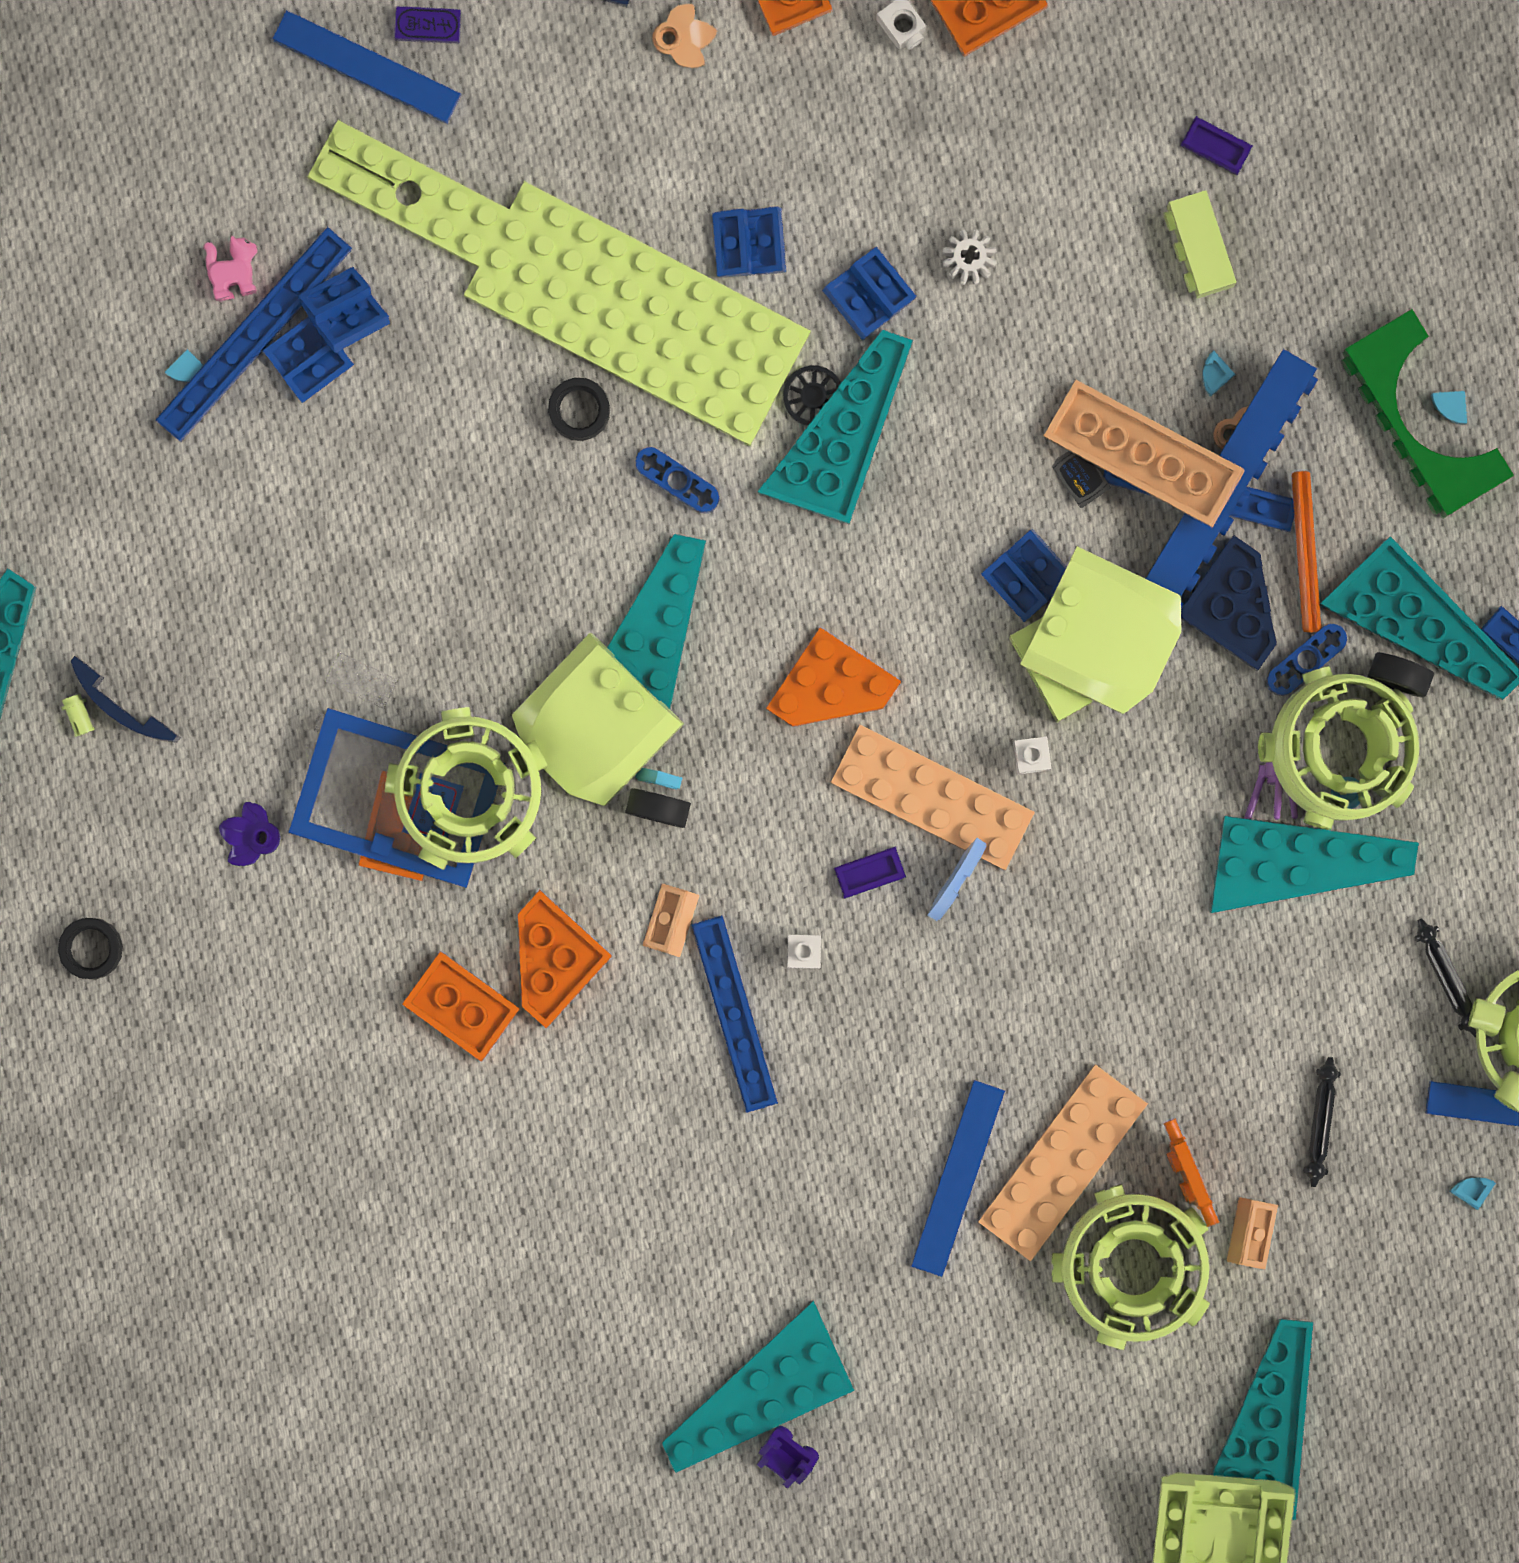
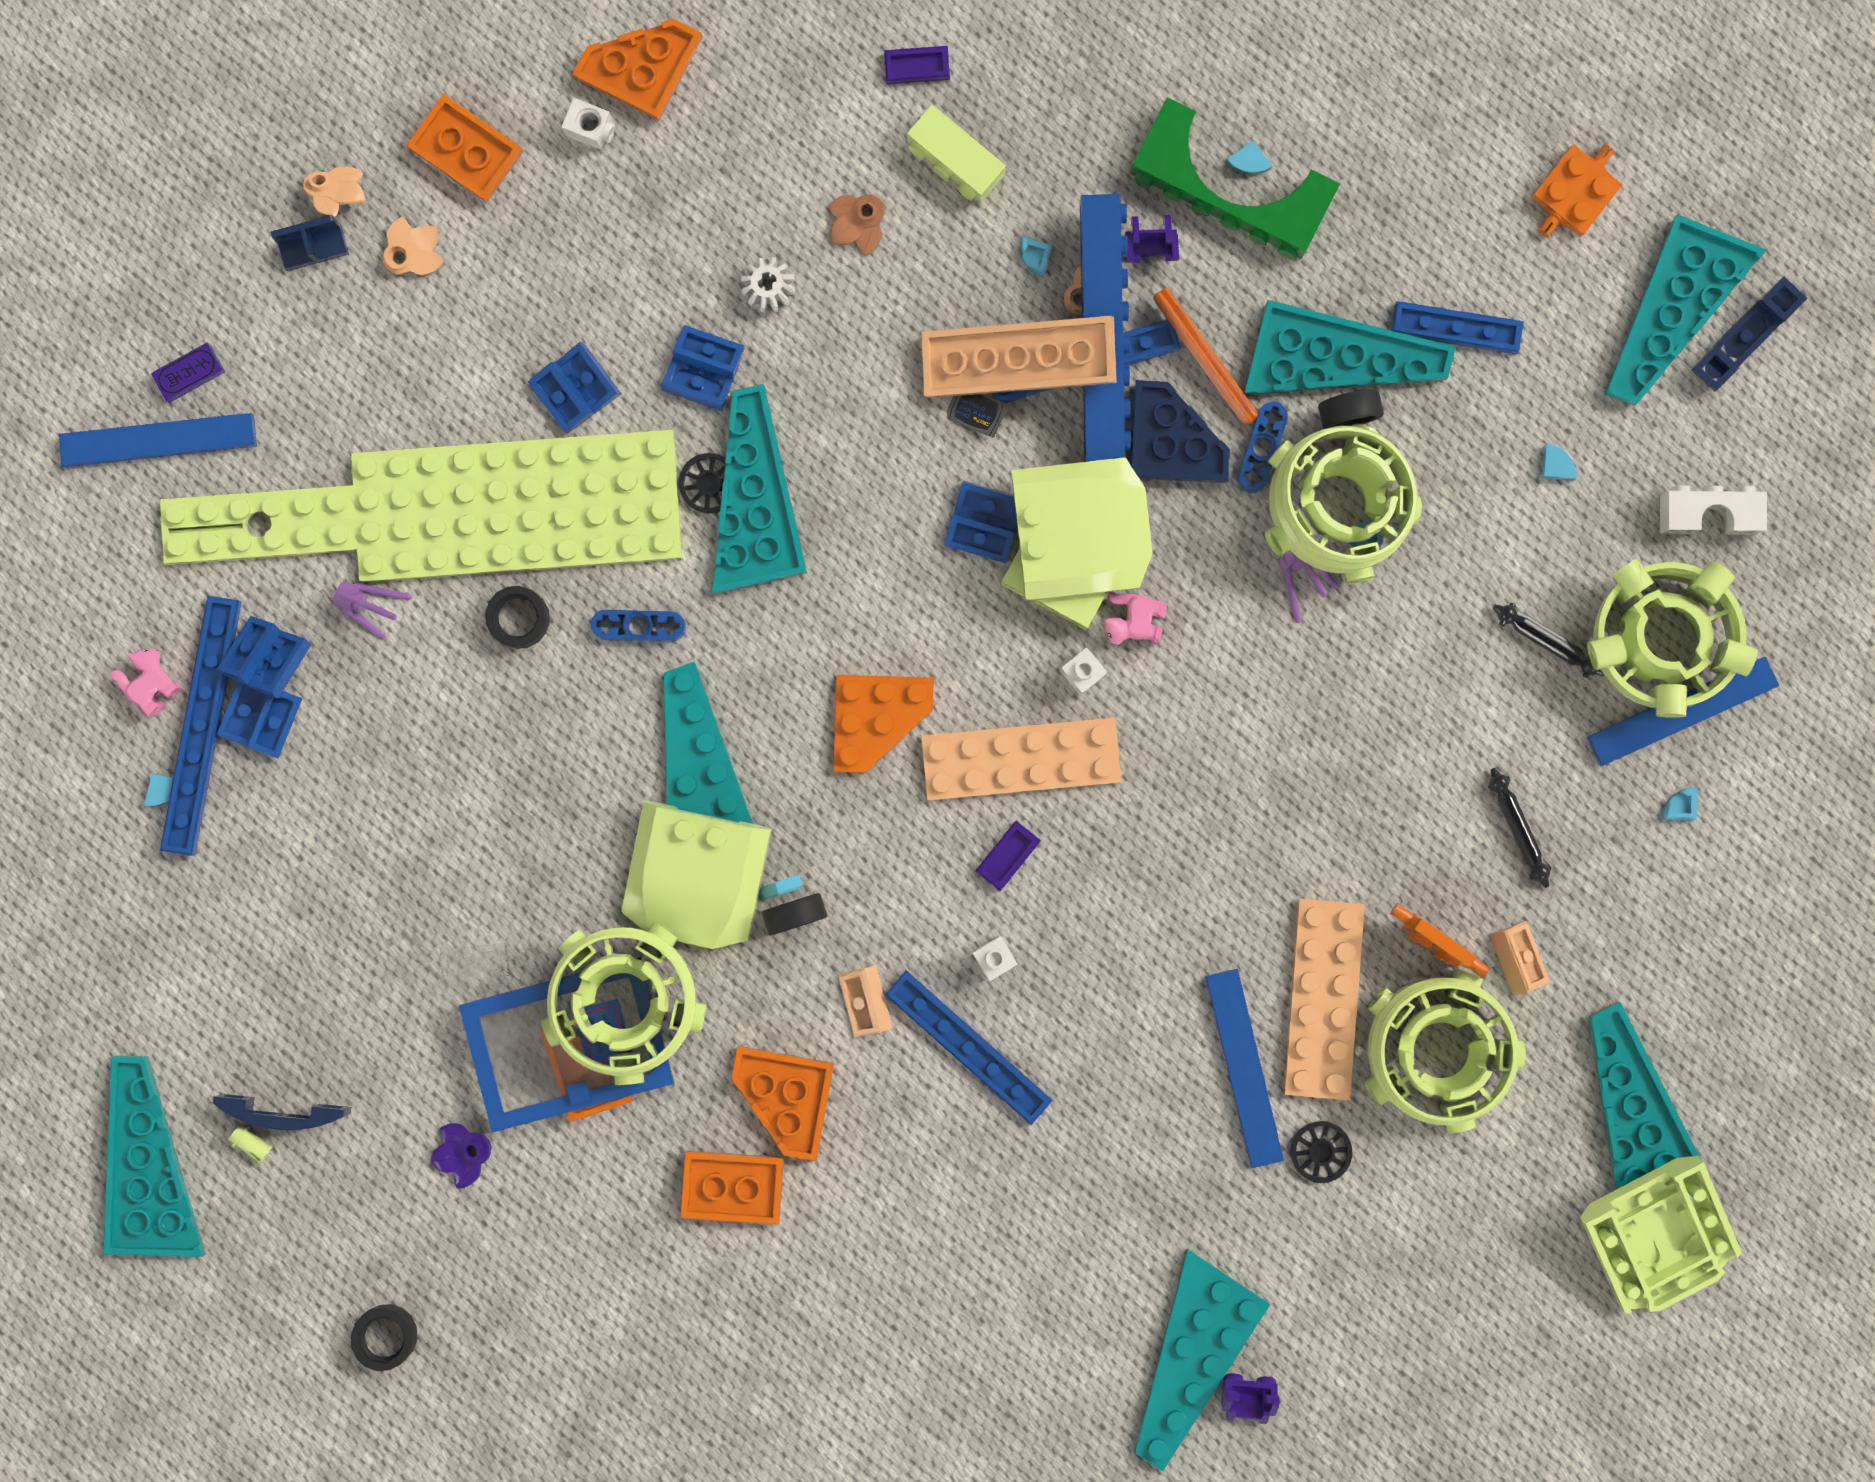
camera: 35 degrees left, 0 degrees up
(448, 306) = (353, 599): none -> medium lavender plant
(963, 870) = (1086, 802): light blue tile -> none
(979, 1290) = (1321, 1151): none -> black wheel
(1076, 252) = (852, 223): none -> nougat plate
(1104, 744) = (1138, 623): none -> bright pink animal
(1284, 861) = (1350, 628): teal wing -> none
(1321, 425) = (1152, 242): none -> dark purple piece

